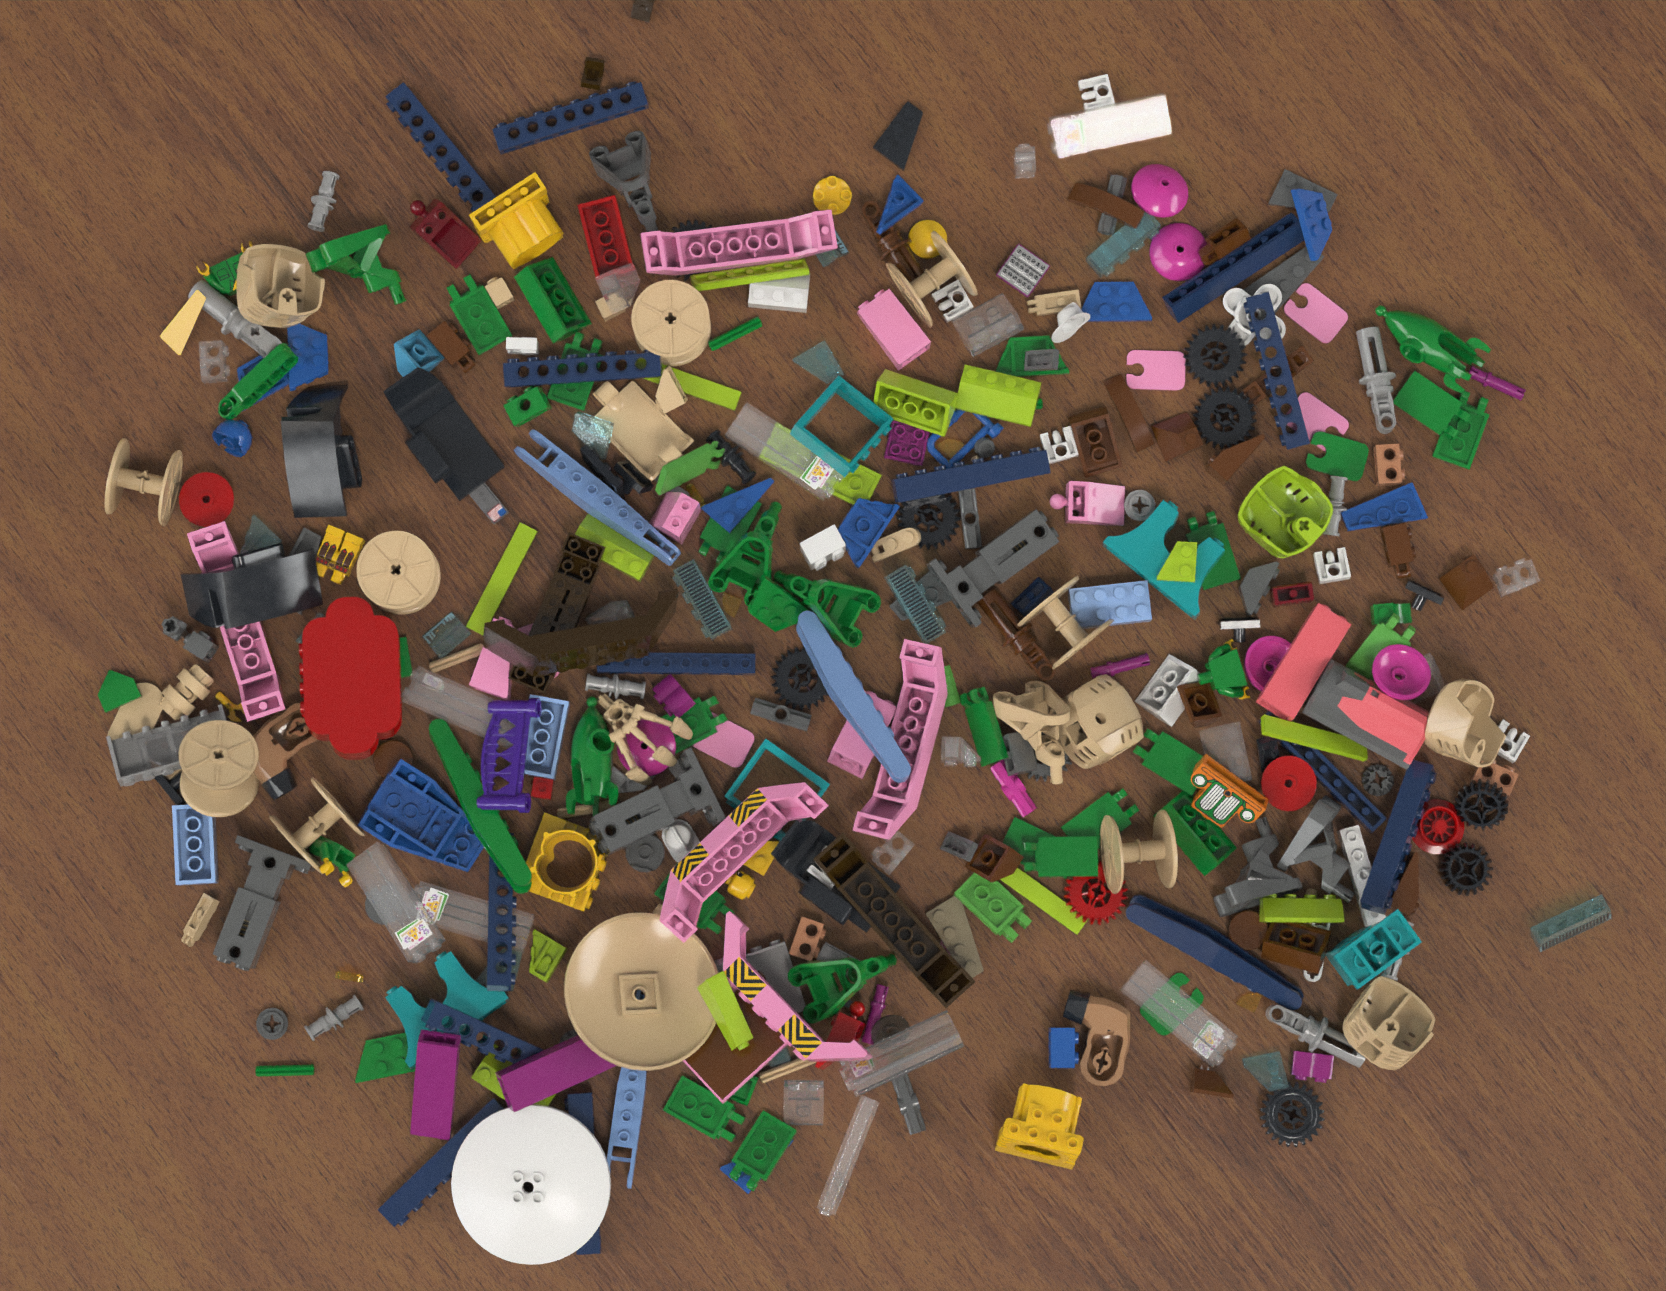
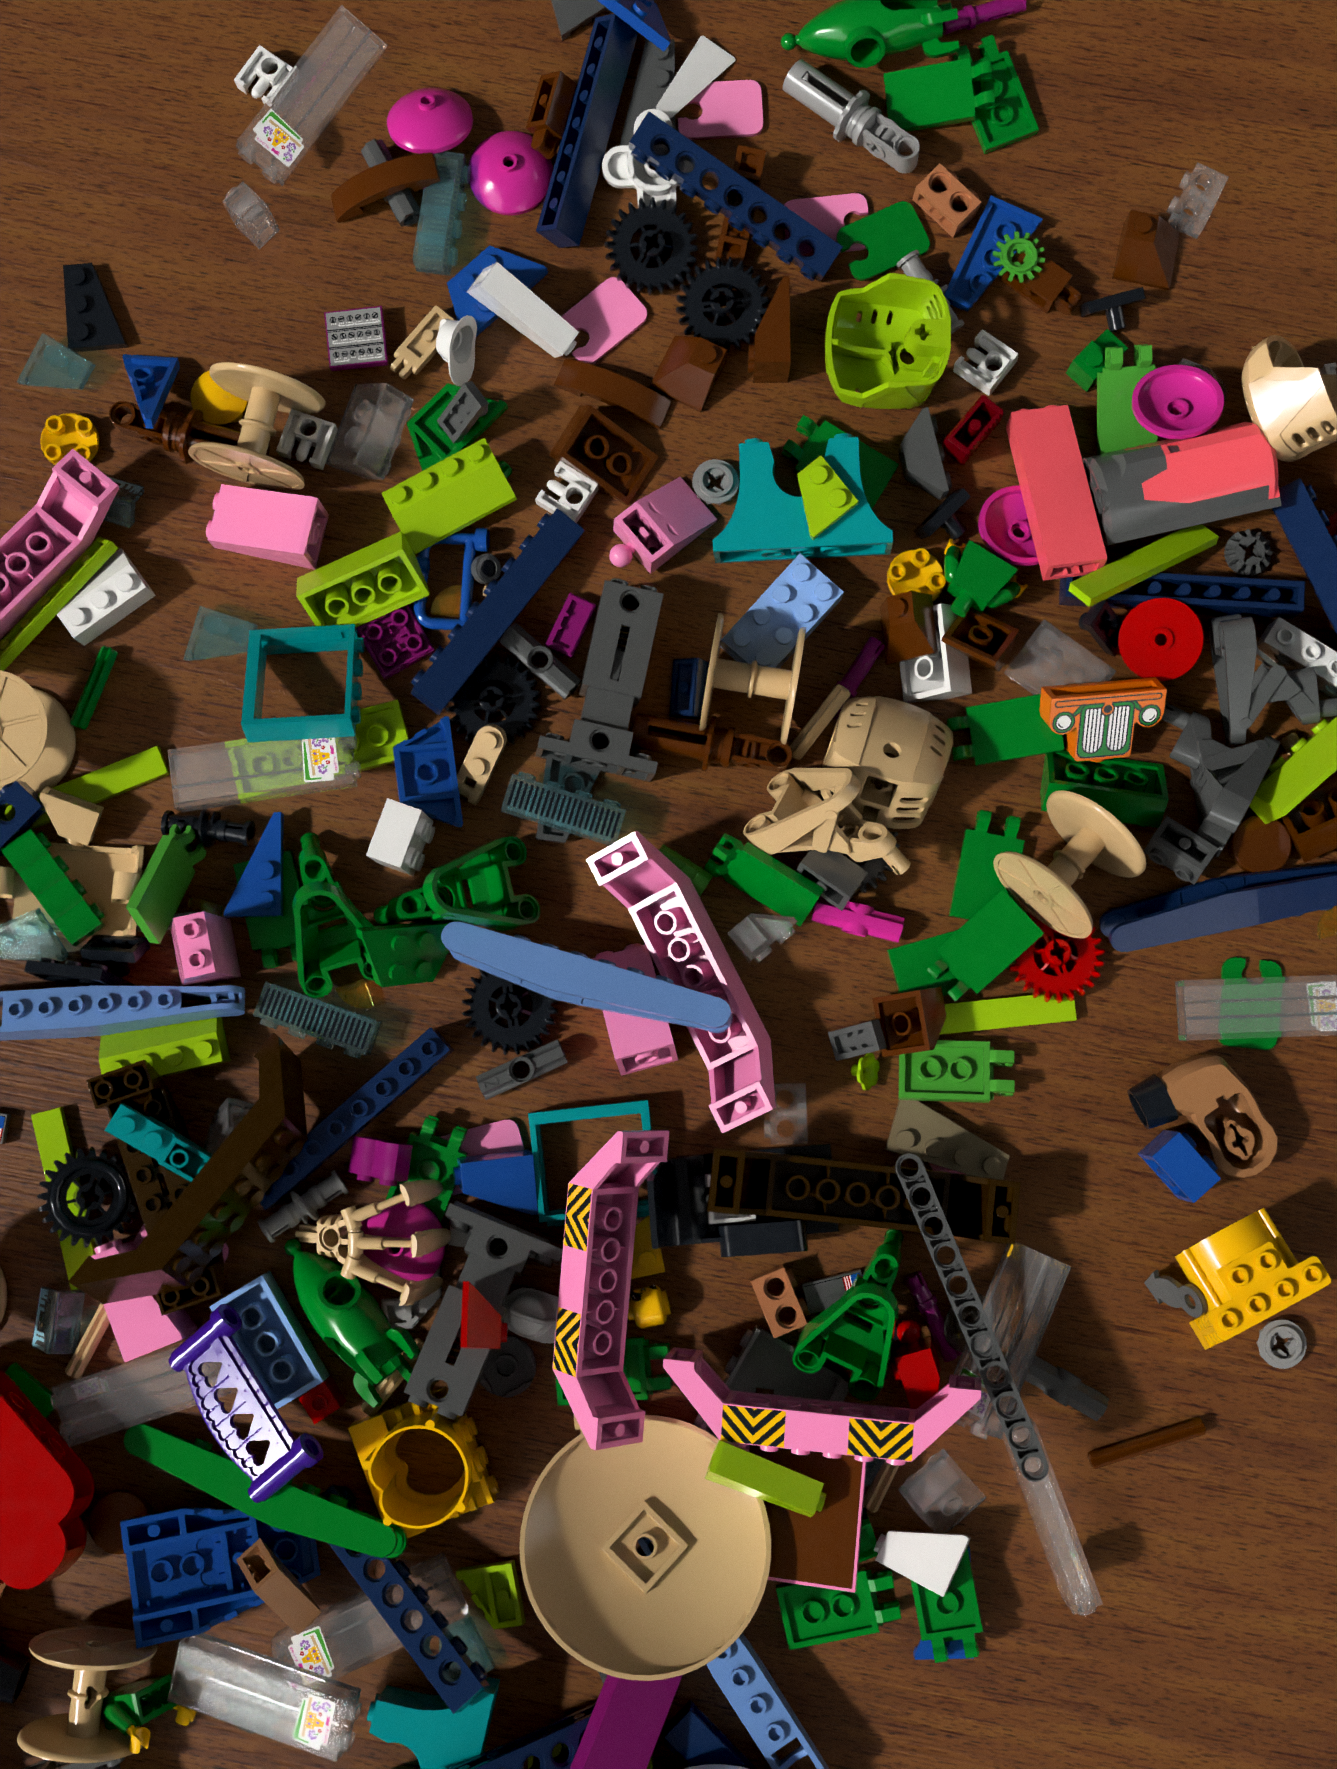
camera: 35 degrees left, 0 degrees up
(447, 857) = (278, 1587): none -> medium nougat slope
(500, 598) = (79, 1226): none -> black gear
(576, 593) = (158, 1142): none -> teal slope
(630, 419) = (53, 887): none -> green brick
(659, 815) = (480, 1321): none -> red slope
(724, 758) = (500, 1179): none -> blue slope
(769, 1121) = (923, 1556): none -> white slope
(858, 151) = (55, 366): none -> clear light blue wing
(894, 1010) = (971, 1330): none -> dark grey beam
(924, 1168) = (1146, 1443): none -> reddish brown axle
(950, 867) = (866, 1071): none -> lime plant
(1001, 514) = (570, 625): none -> magenta plate
(1002, 1105) = (1176, 1295): none -> dark grey brick
(1026, 1185) = (1295, 1345): none -> light grey gear
(1081, 673) = (819, 721): none -> tan axle
(1118, 333) = (523, 310): none -> white slope
(1169, 665) = (908, 627): none -> reddish brown slope
(1196, 643) = (916, 572): none -> yellow dish
(1203, 896) = (1180, 850): none -> dark grey brick
(1322, 284) = (697, 72): none -> white sticker
(1399, 534) = (1021, 245): none -> bright green gear

